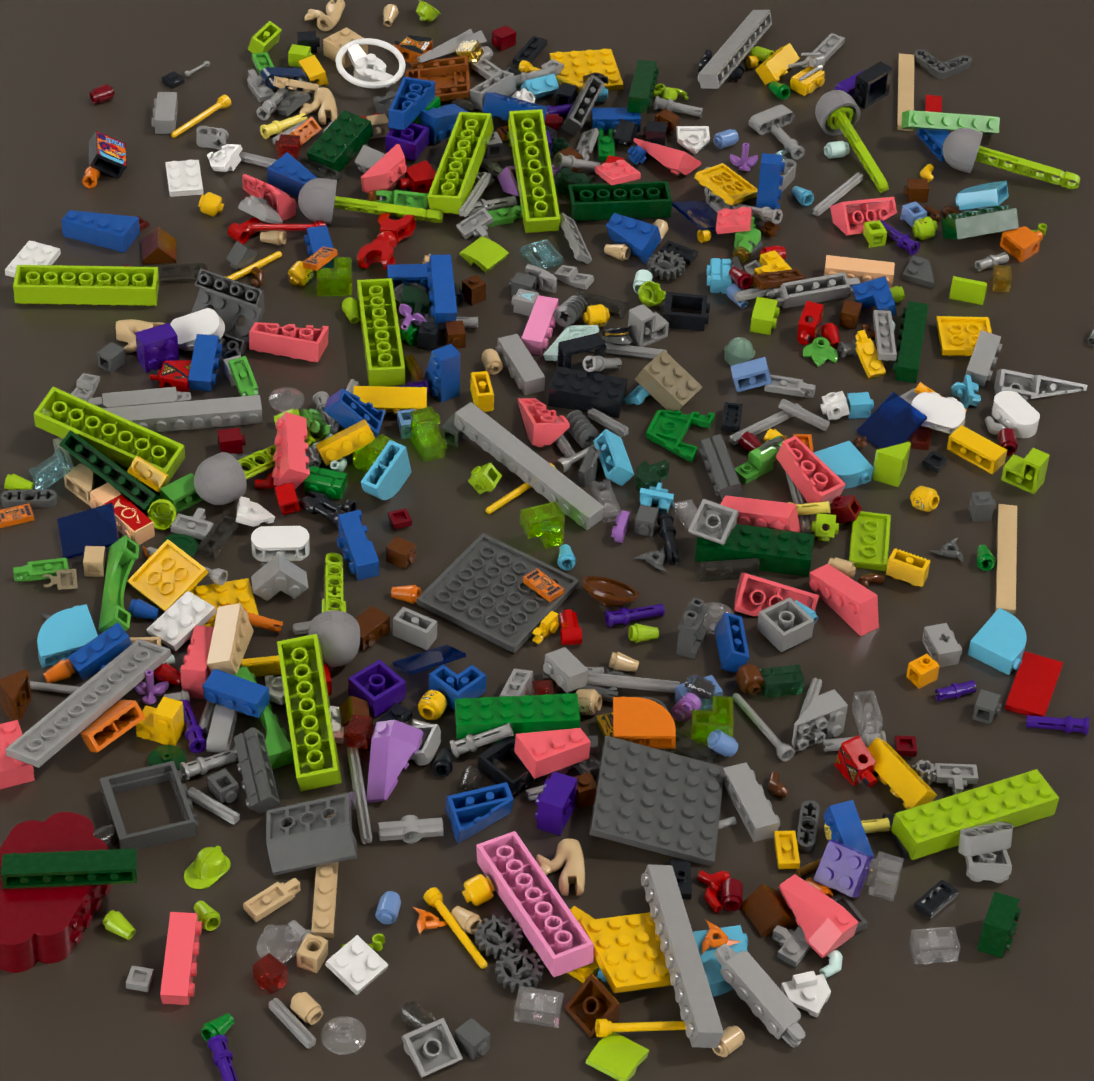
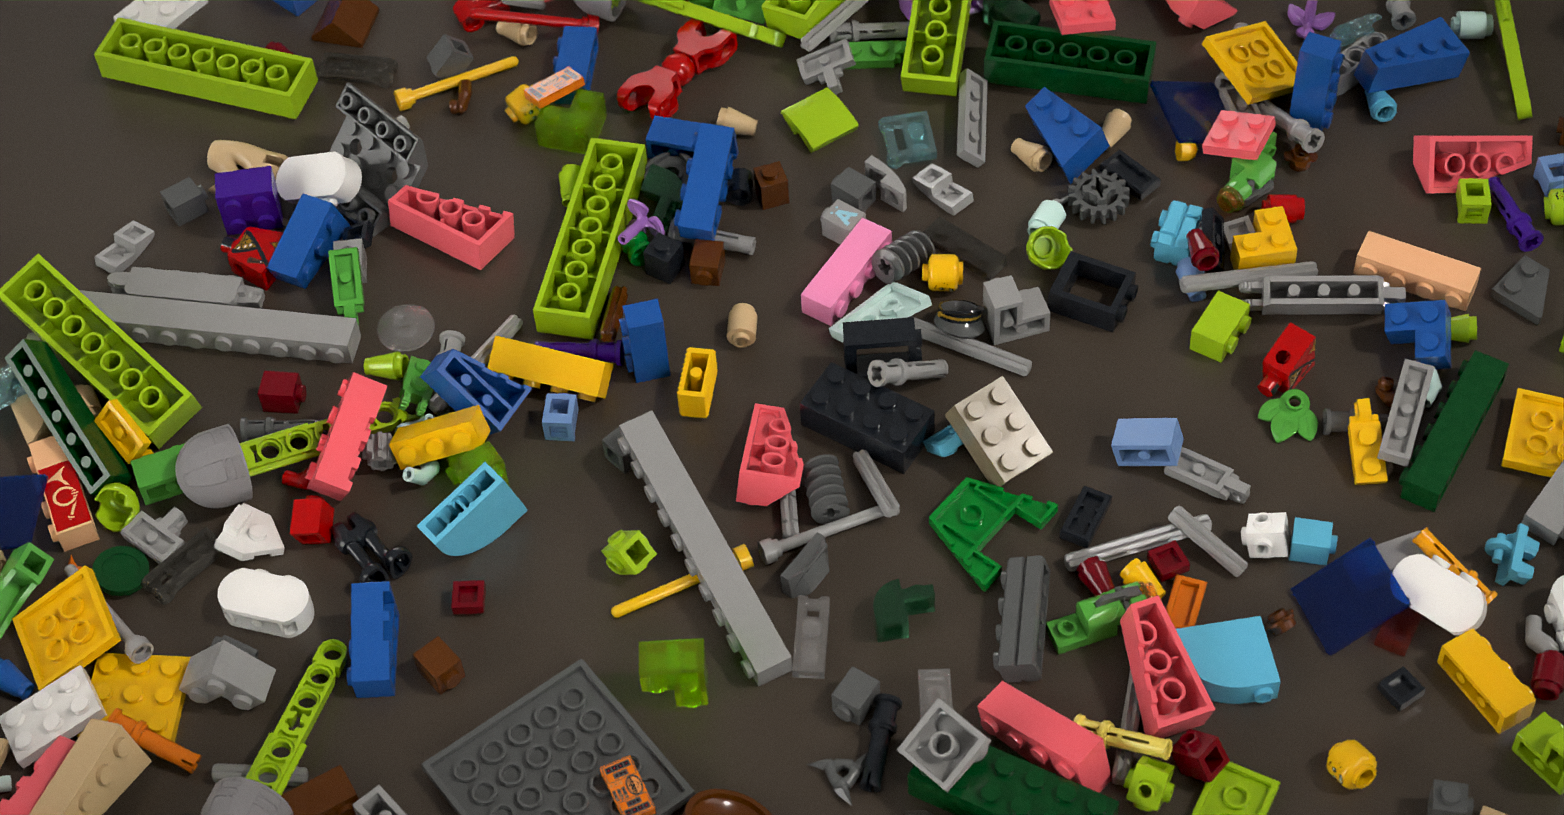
camera: 25 degrees right, 10 degrees up
(327, 482) = (386, 502): green brick -> none
(406, 593) = (413, 747): orange cone -> none
(426, 434) = (576, 445): clear neon green brick -> none
(520, 364) = (784, 339): light grey brick -> none
(566, 558) = (695, 738): medium azure cone -> none
(614, 457) = (852, 558): medium azure brick -> none
(622, 522) = (816, 690): medium lavender plate -> none
(657, 496) = (877, 650): medium azure hips -> none
(738, 351) = (1150, 389): sand green piece -> none
(777, 278) = (1264, 263): reddish brown plate -> none
(787, 427) = (1168, 560): none -> dark red plate
(813, 169) = (1413, 58): none -> blue wedge
(831, 333) = (1320, 387): red cone -> none
(837, 194) = (1441, 110): light grey axle -> none
(850, 314) = (1368, 353): reddish brown brick -> none
(891, 464) = (1317, 682): lime slope -> none

